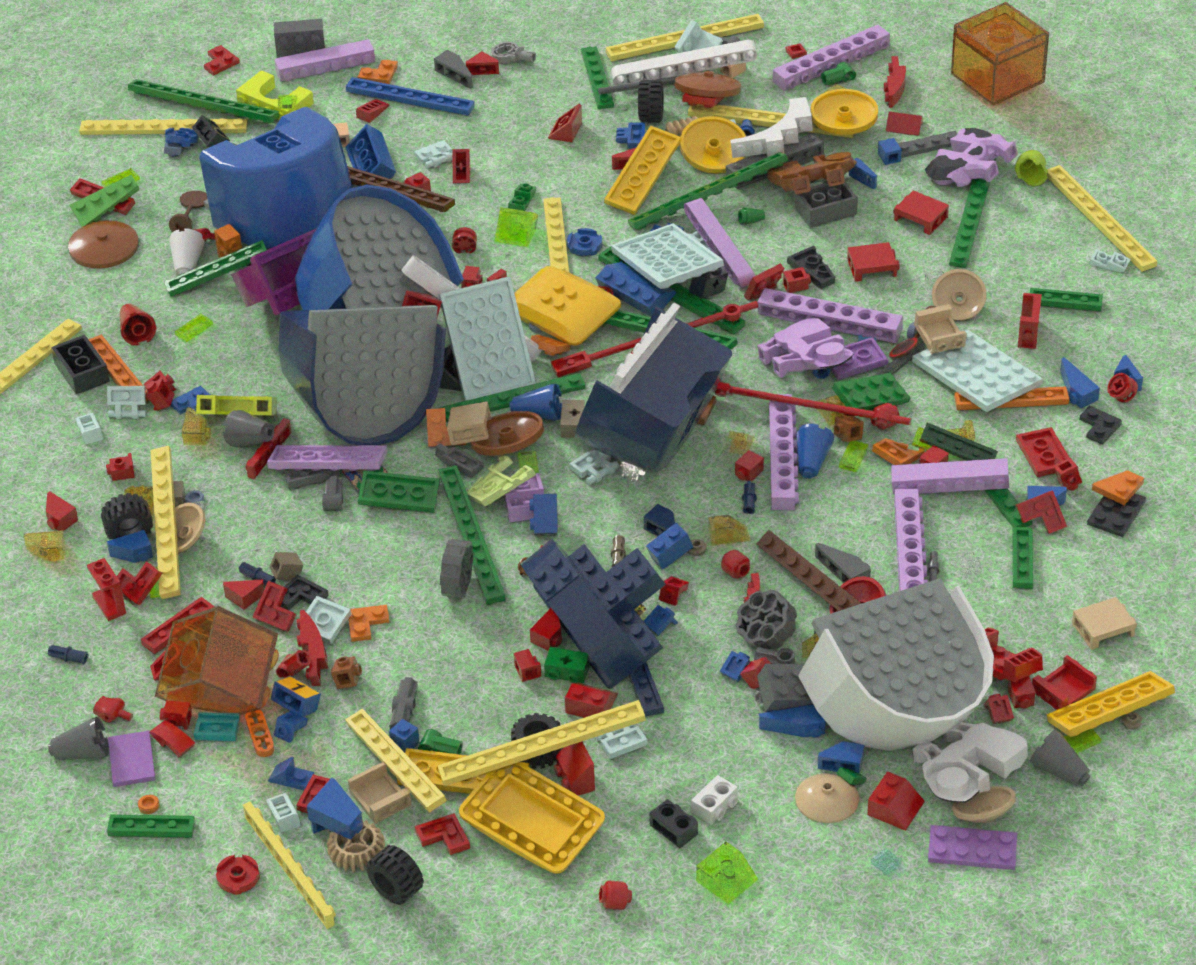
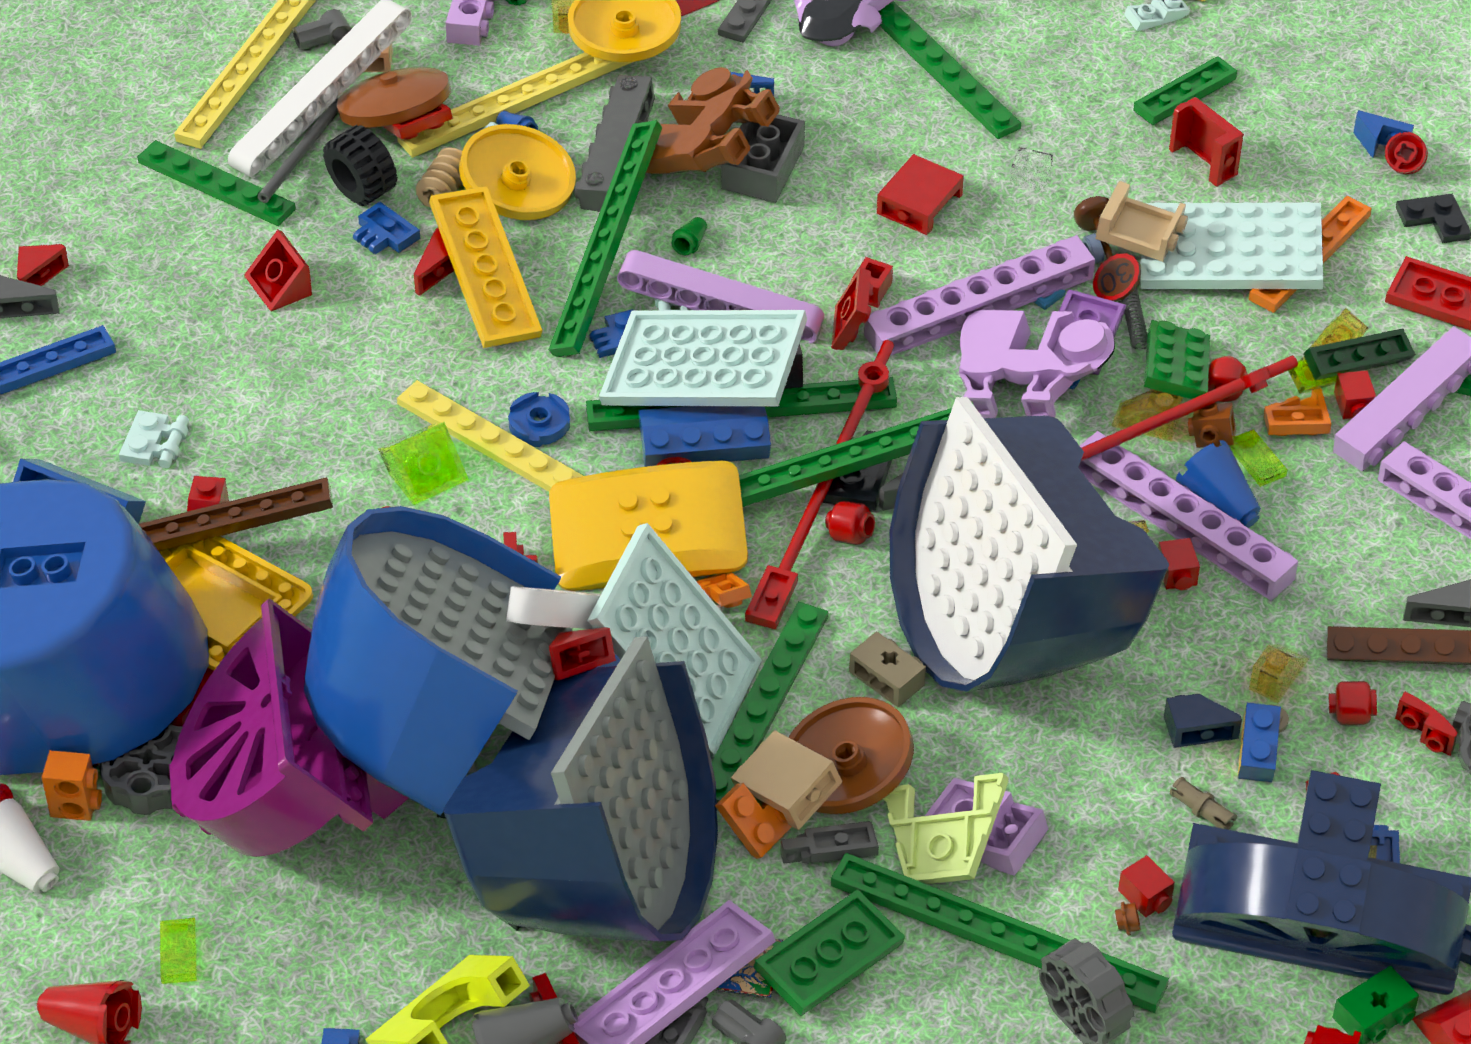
camera: 50 degrees left, 5 degrees up
(214, 269) = (102, 834): green plate -> none
(461, 165) = (224, 430): red slope -> none
(514, 53) = (60, 220): light grey pin -> none
(522, 197) = (362, 416): green slope -> none
(529, 459) = (922, 776): clear neon green slope -> none
(541, 401) = (825, 678): blue cone -> none
(545, 514) = (1064, 825): blue brick -> none
(547, 631) = (1286, 979): red slope -> none
(590, 462) = (991, 715): light aqua plate -> none
(634, 470) = (1056, 680): clear tile -> none
(696, 38) = (299, 48): light aqua bracket -> none
(749, 498) = (1231, 604): dark blue axle -> none
(773, 139) = (602, 109): white arch -> none
(813, 265) = (849, 250): black wing -> none
(889, 151) = (730, 39): blue brick -> none
(922, 210) = (879, 89): red panel -> none
(960, 284) = (1088, 152): tan dish -> none
(1079, 387) = (1361, 183): blue slope -> none

